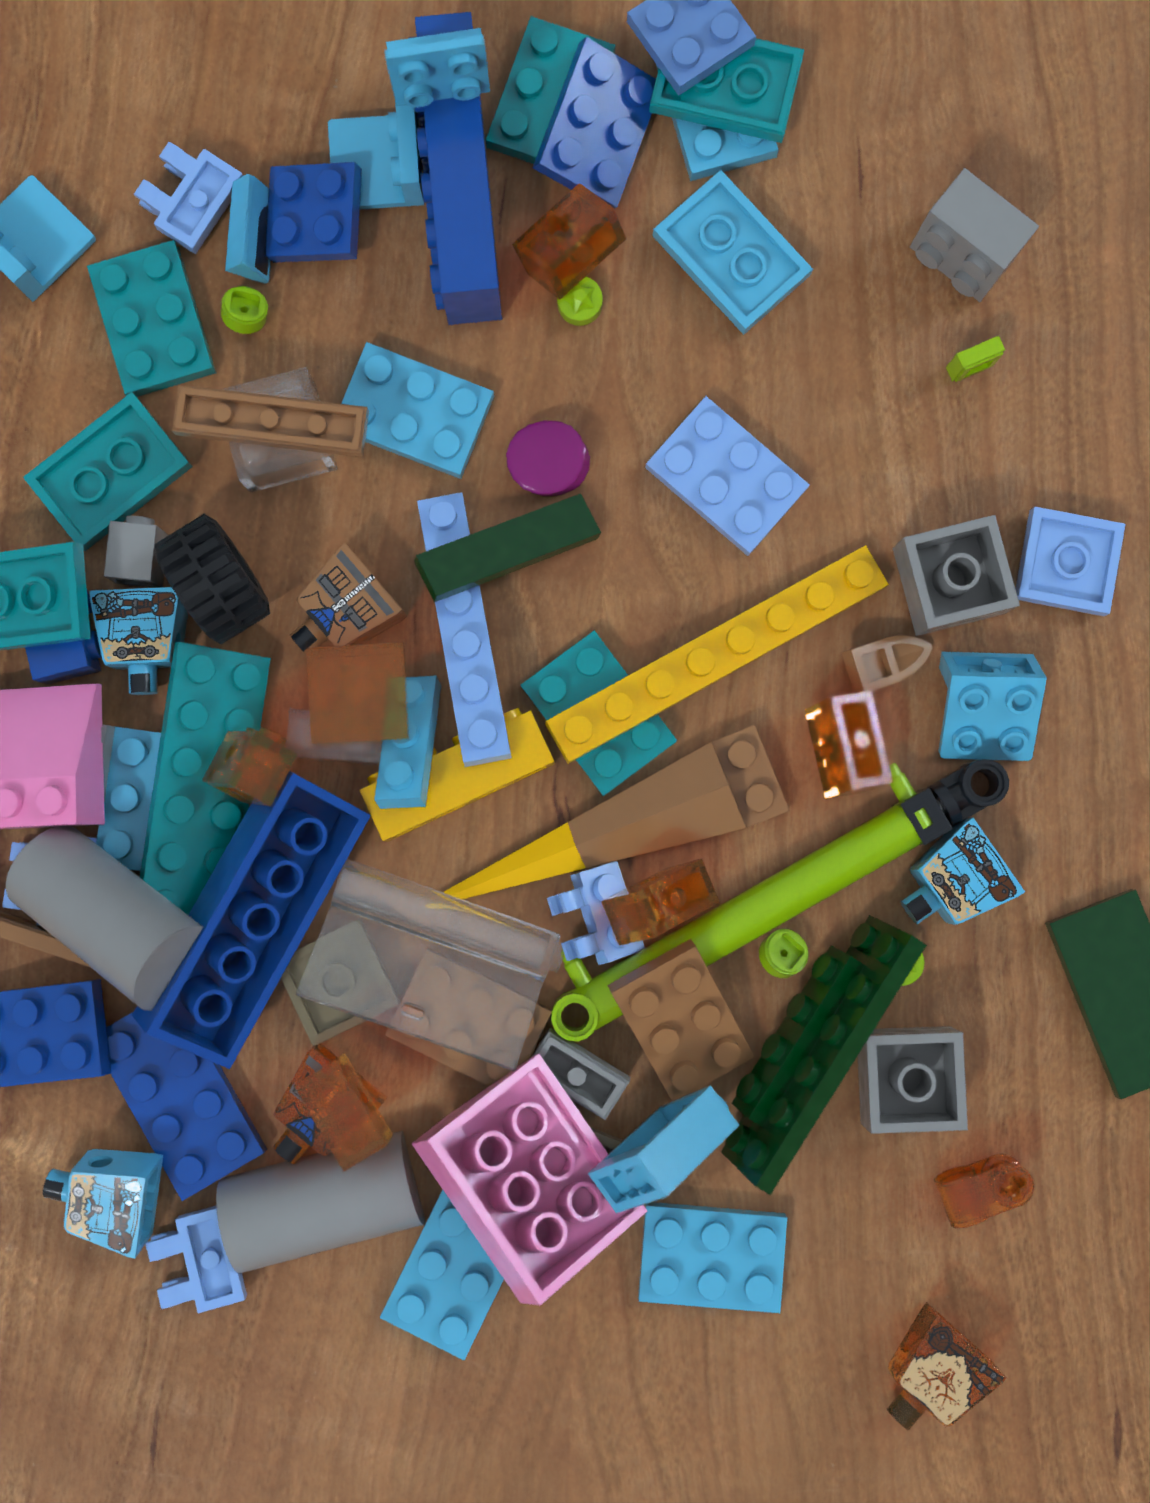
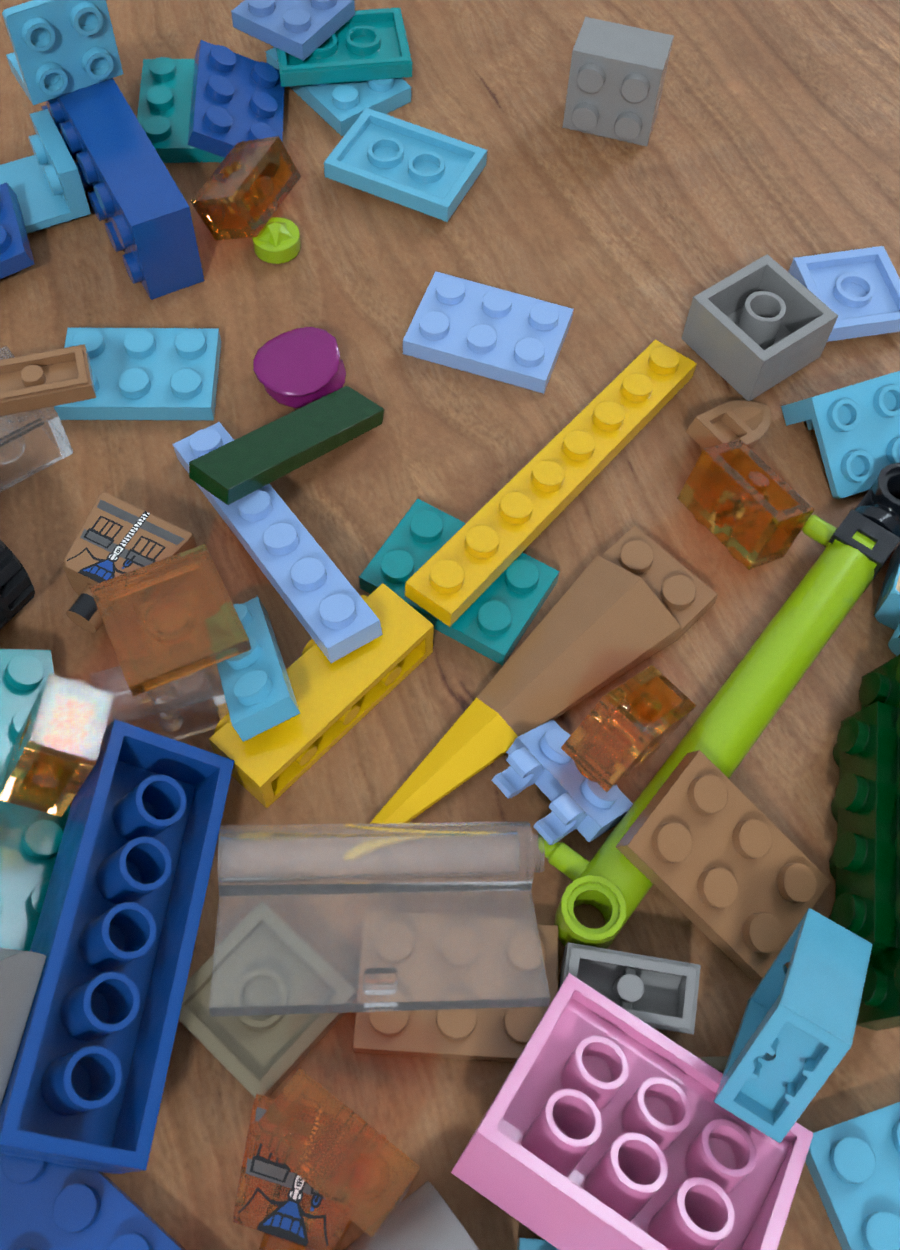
camera: 25 degrees left, 25 degrees down
(783, 953) = (795, 748): lime tile -> none
(975, 359) = (670, 172): lime tile -> none

